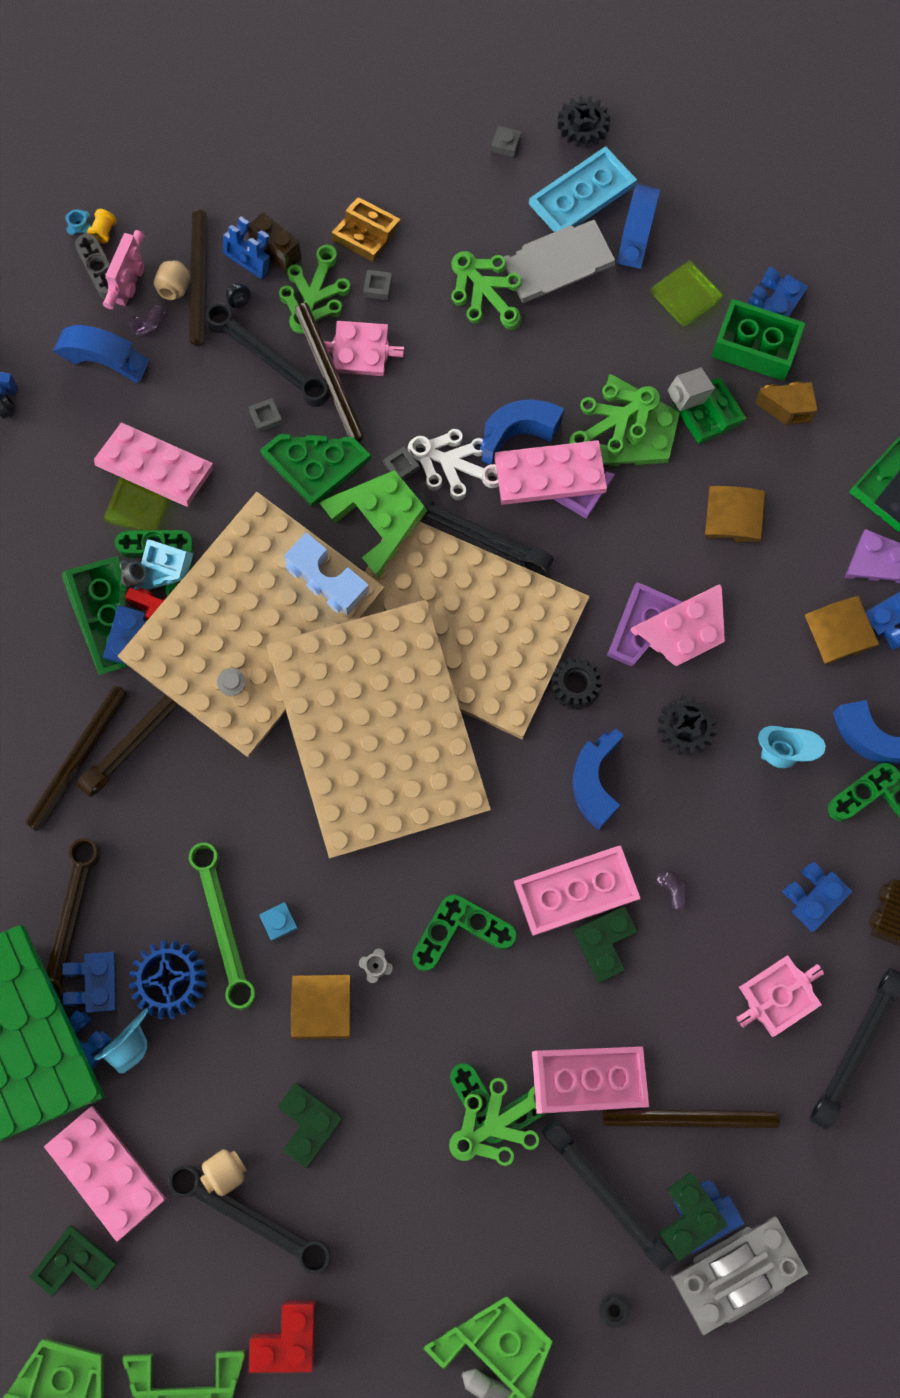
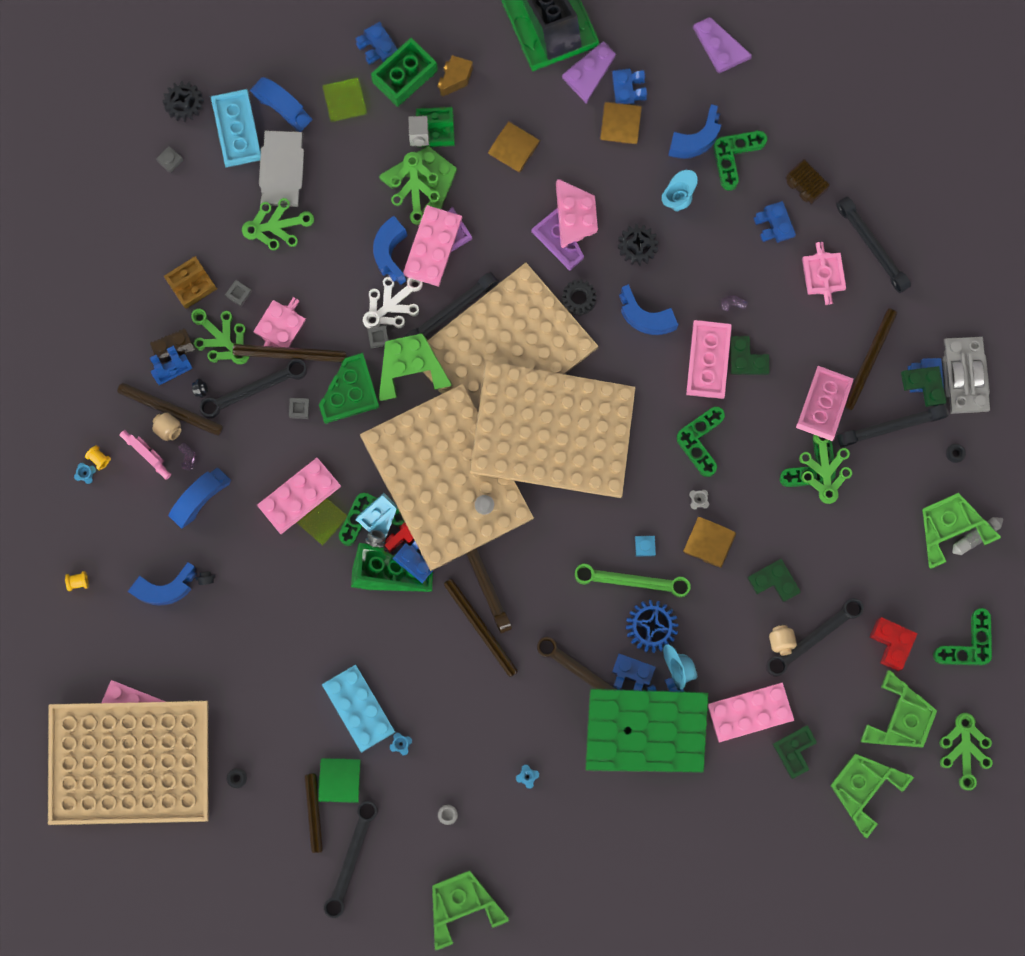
camera: 65 degrees left, 5 degrees up
(89, 260) = (113, 478): dark grey beam -> none
(341, 591) = (427, 422): light blue arch -> none

